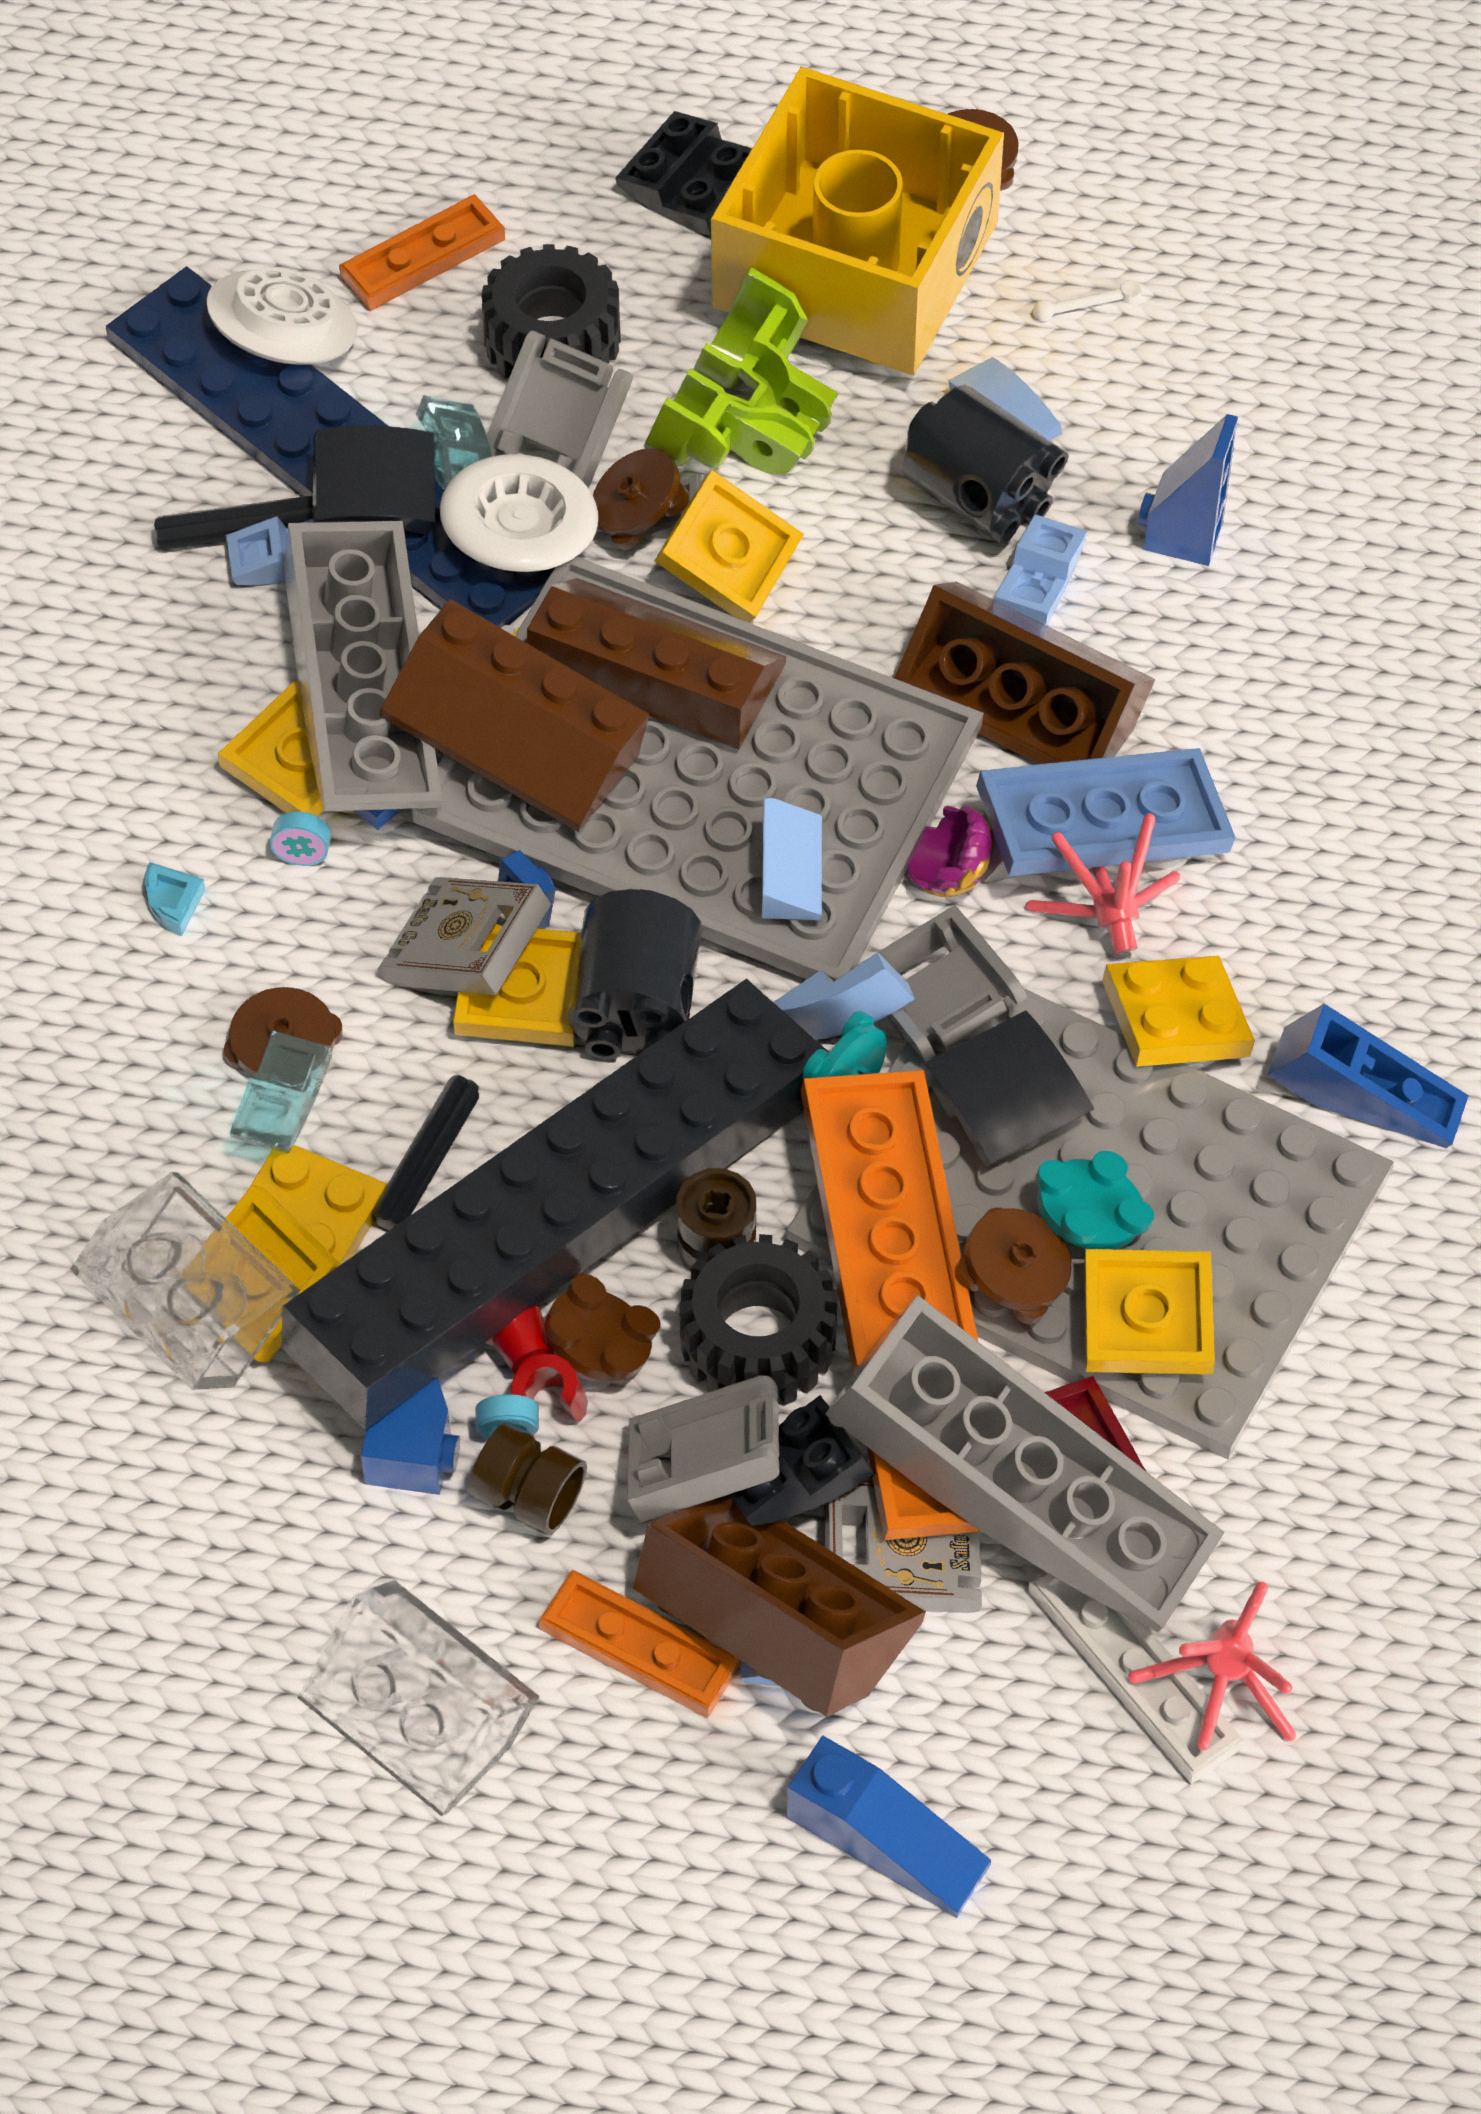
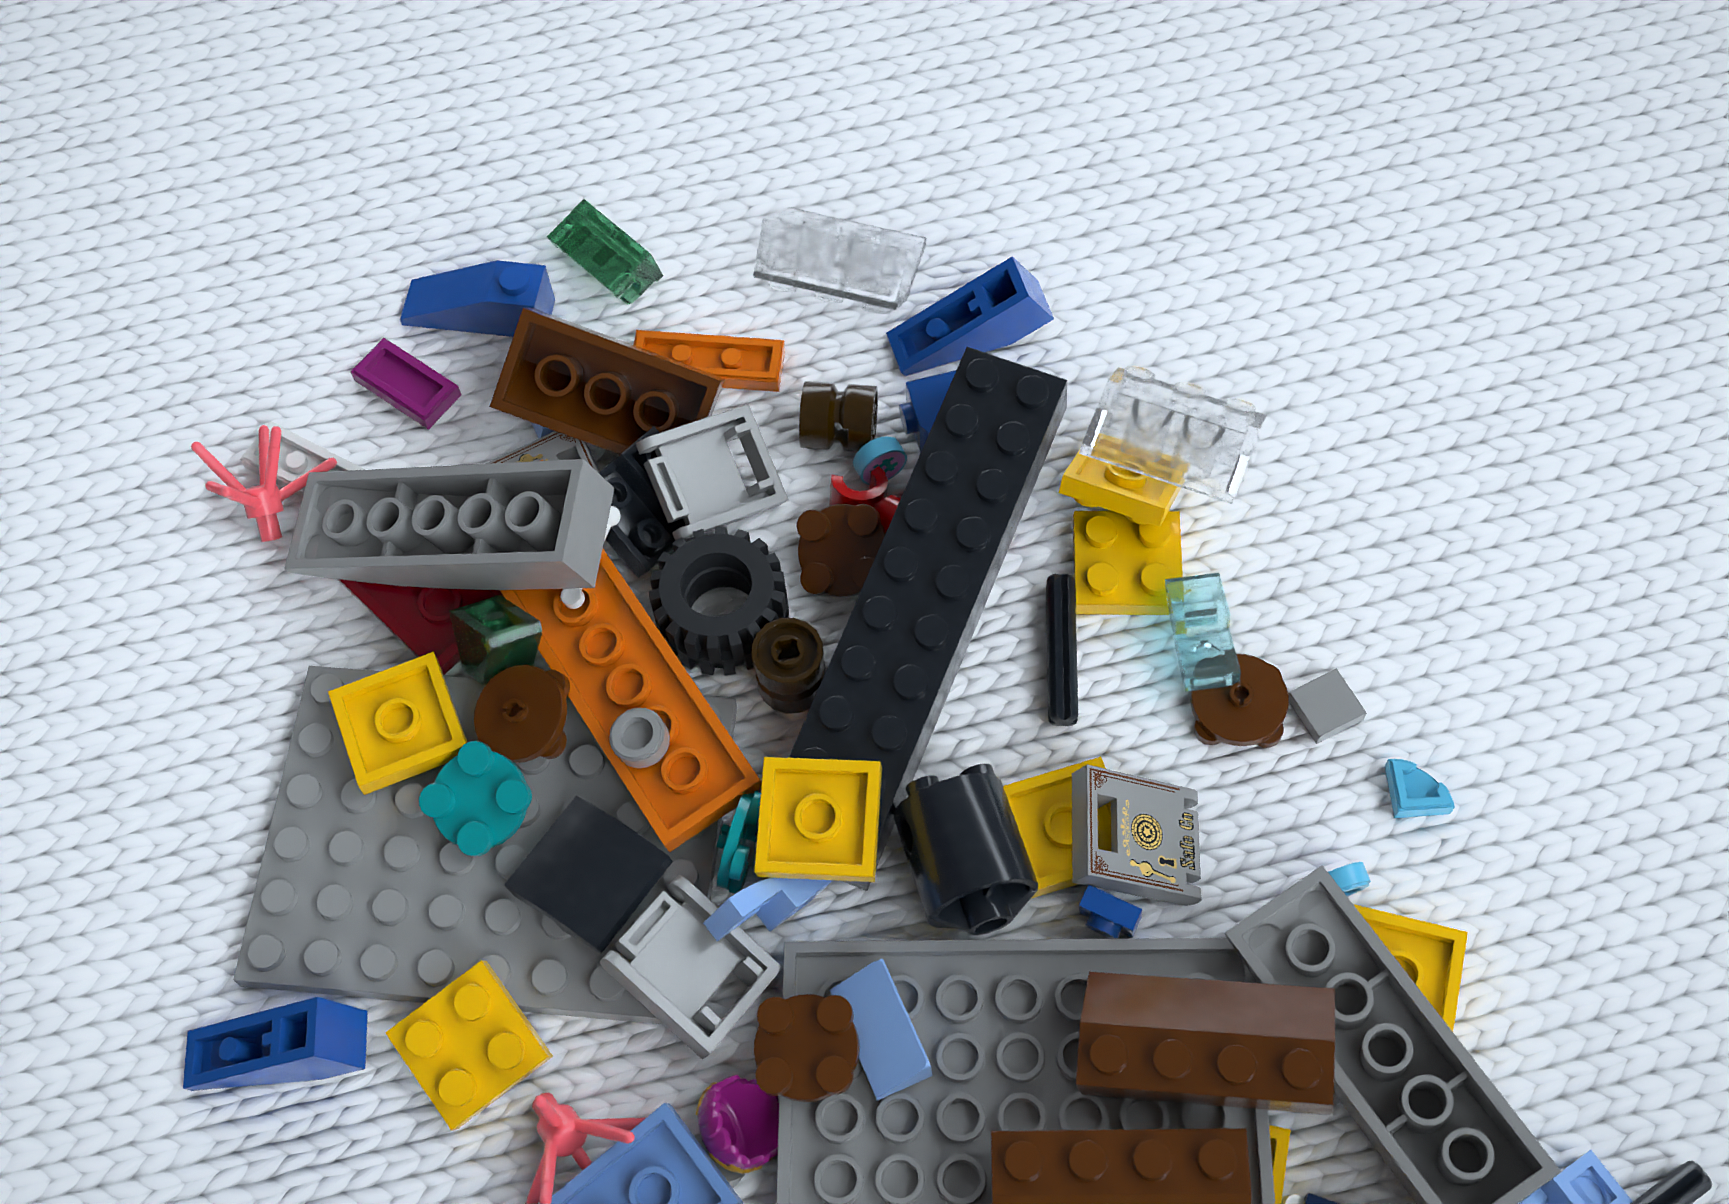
camera: 160 degrees right, 5 degrees up
(201, 998) = (1326, 706): none -> light grey tile
(311, 1538) = (980, 315): none -> blue slope
(702, 1824) = (606, 252): none -> clear green hinge
(765, 1009) = (818, 819): none -> yellow plate
(865, 870) = (805, 1047): none -> reddish brown piece
(905, 1168) = (639, 737): none -> light grey tile
(1012, 1768) = (406, 383): none -> magenta tile
(1015, 1329) = (494, 637): none -> clear green slope

